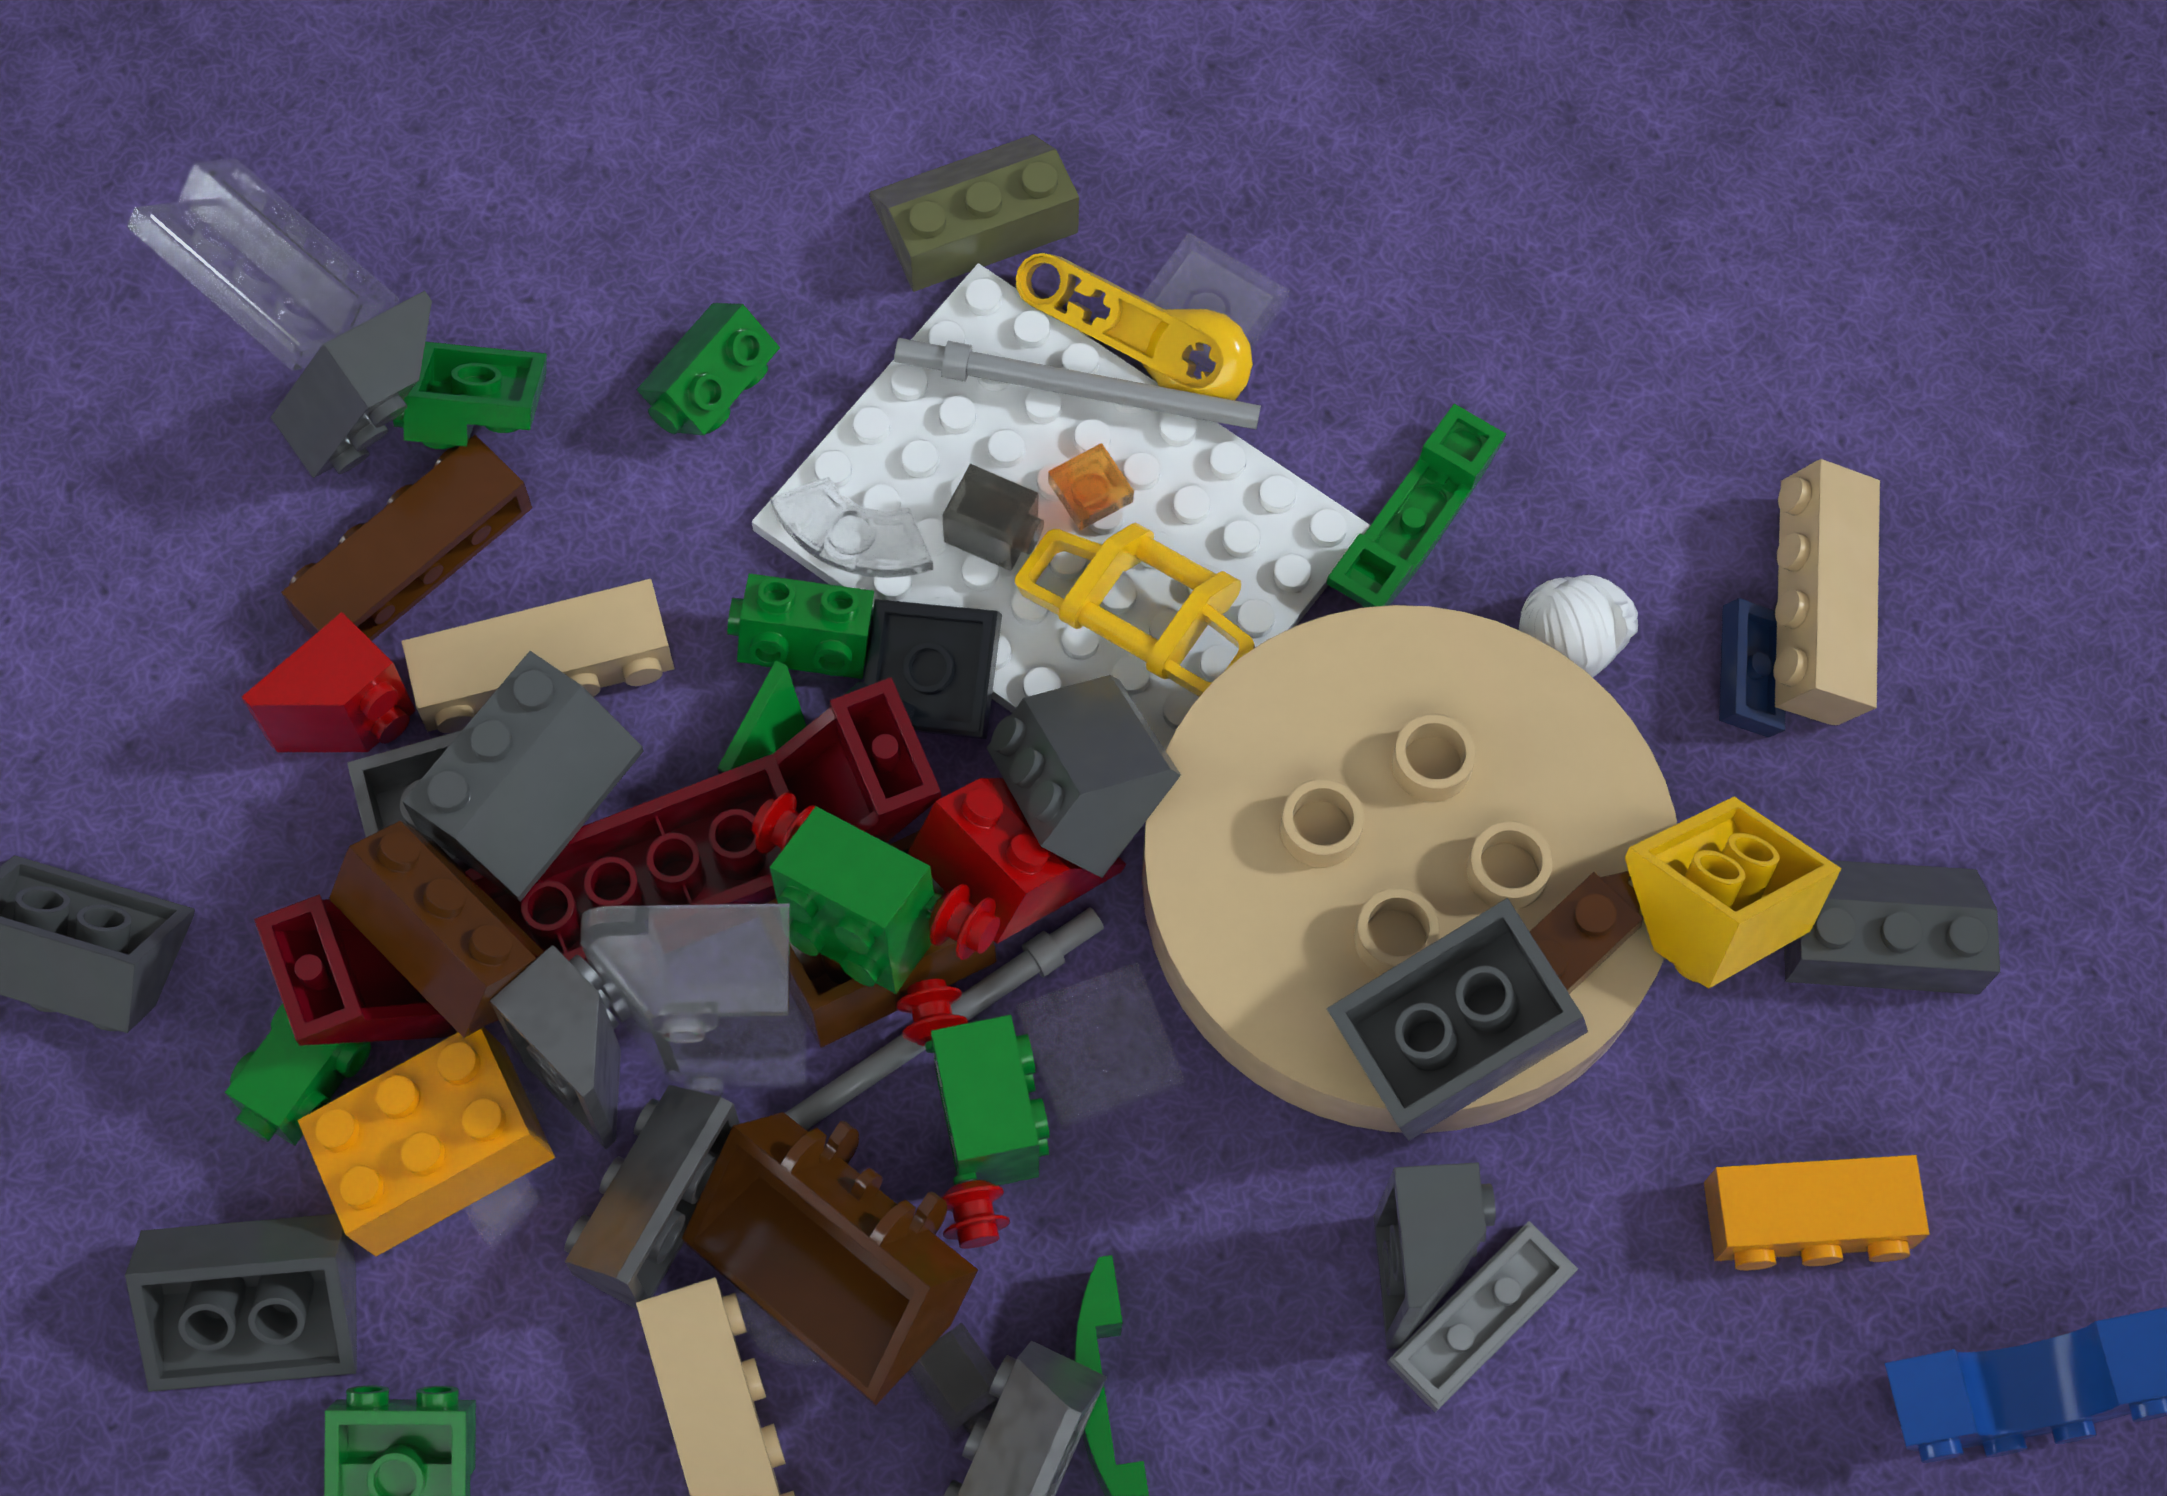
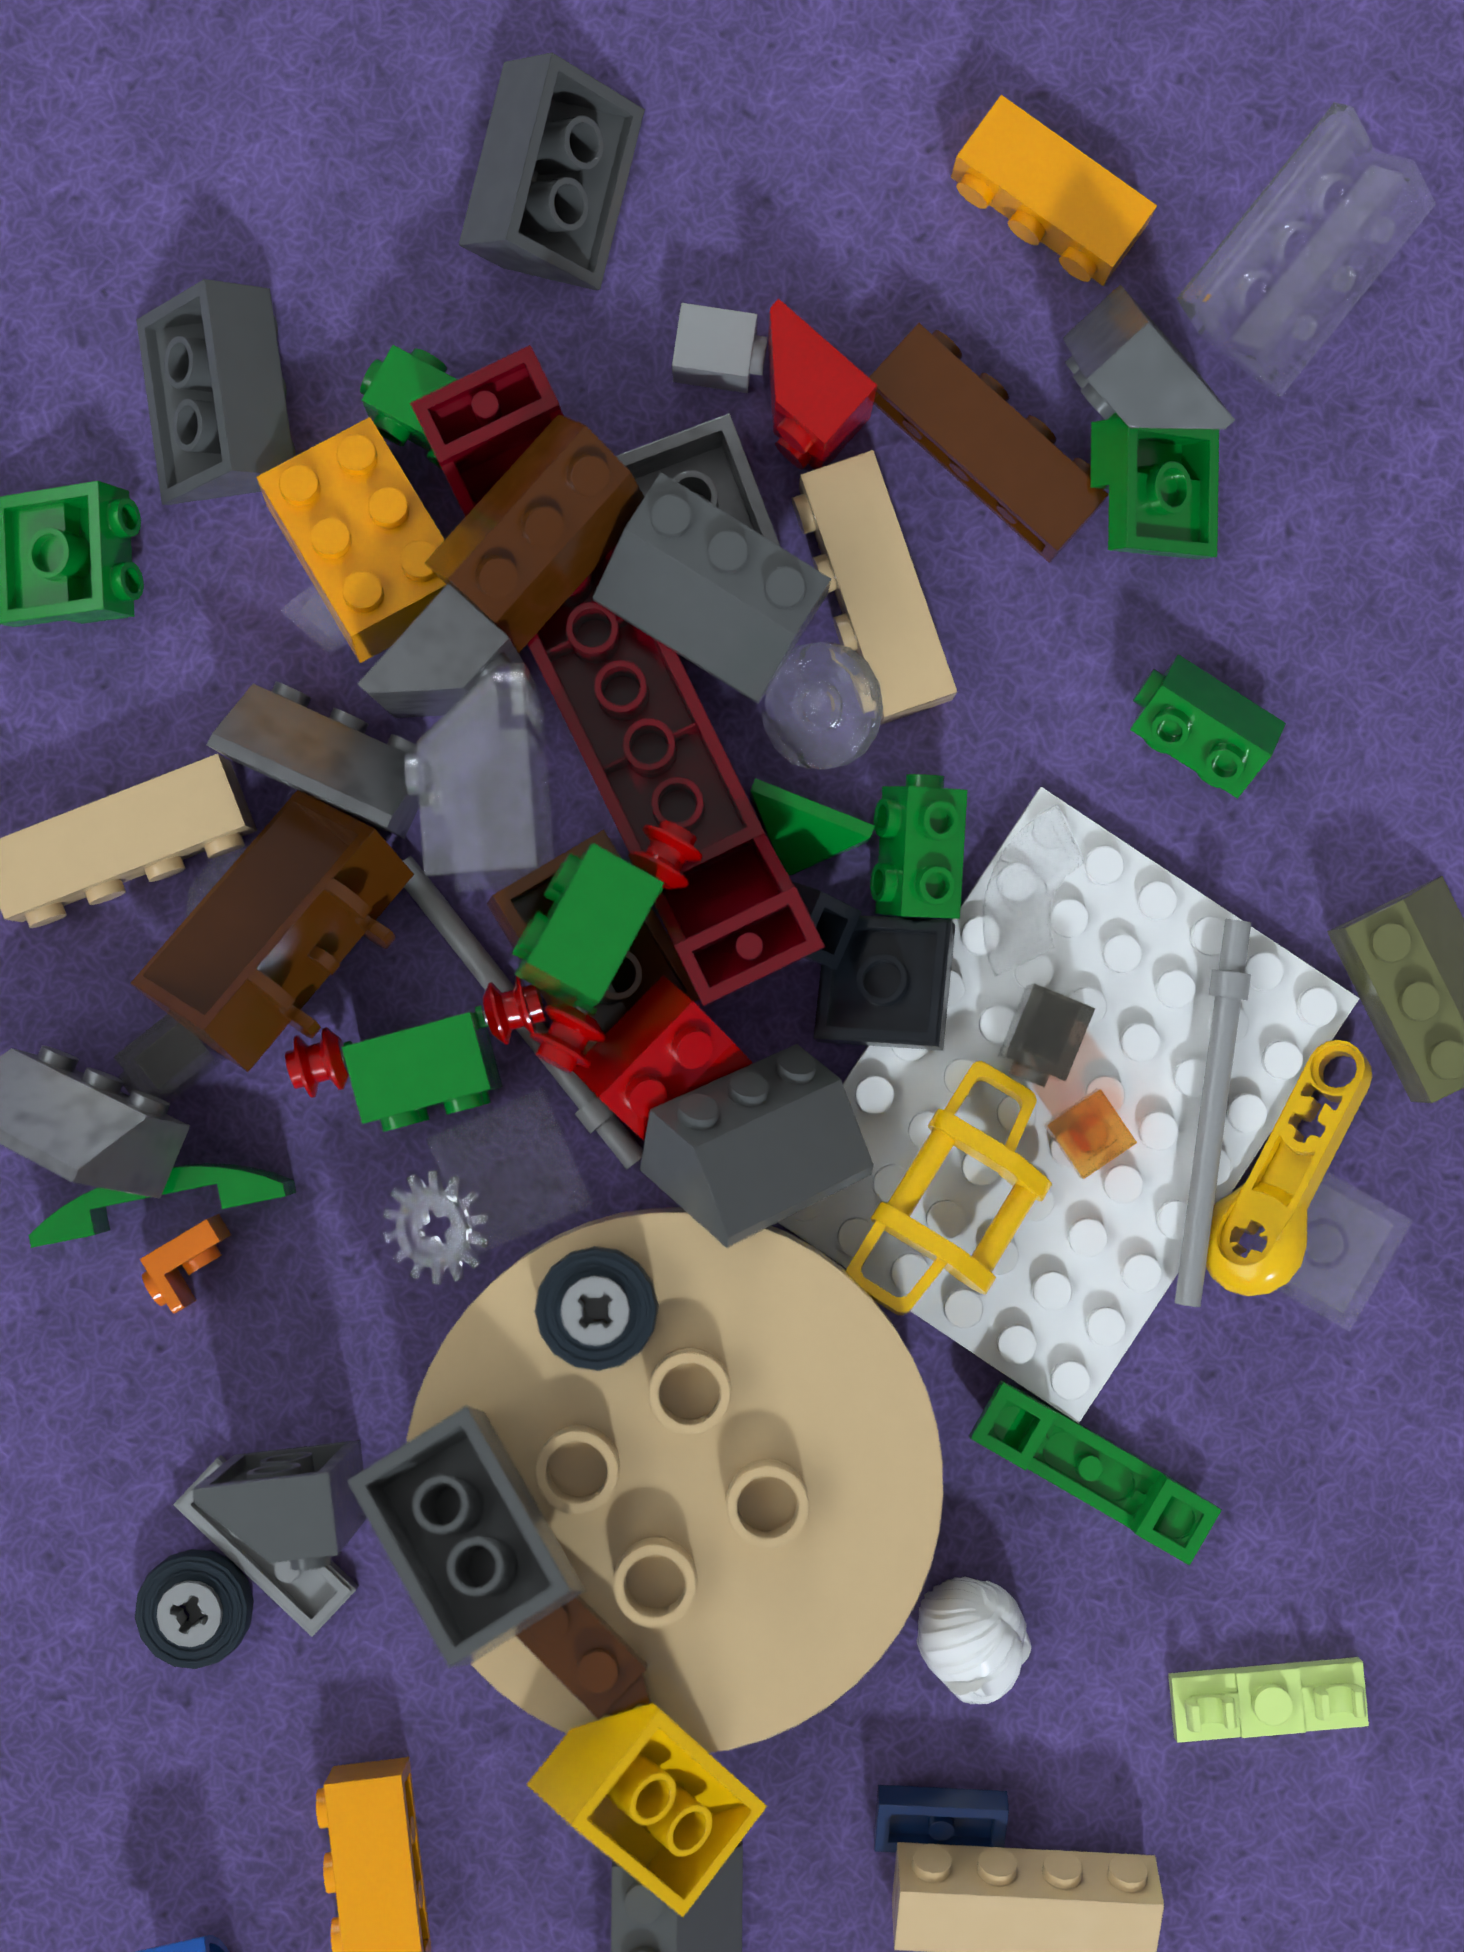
camera: 90 degrees right, 20 degrees up
(169, 475) = (1051, 192): none -> light orange brick
(275, 790) = (717, 348): none -> light grey brick
(659, 702) = (823, 706): none -> clear tile
(1165, 1375) = (192, 1251): none -> orange bracket
(1178, 1128) = (414, 1215): none -> clear gear
(1225, 924) = (596, 1277): none -> black wheel
(1537, 1413) = (206, 1586): none -> black wheel
(1634, 381) = (1268, 1699): none -> yellowish green plate

